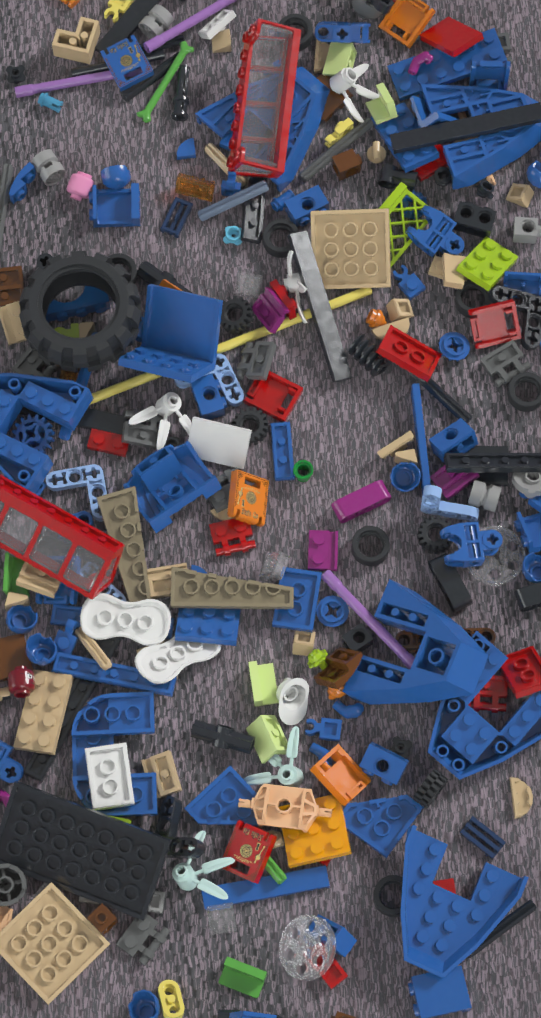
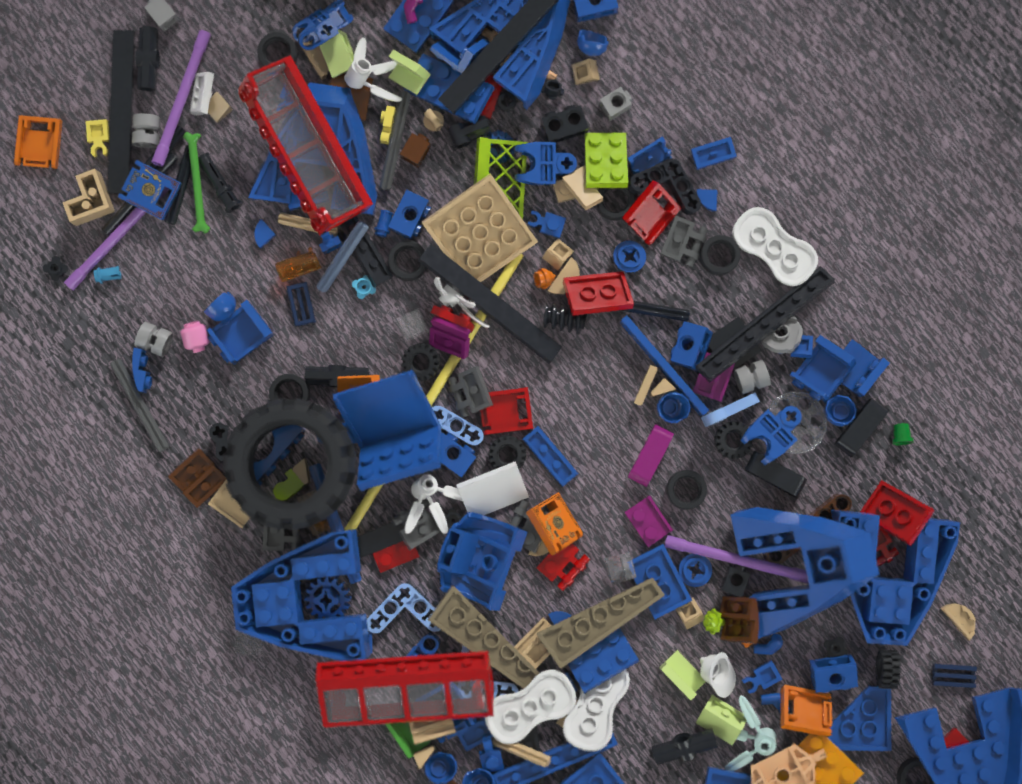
camera: 40 degrees left, 15 degrees up
(303, 465) = (590, 461): green piece -> none

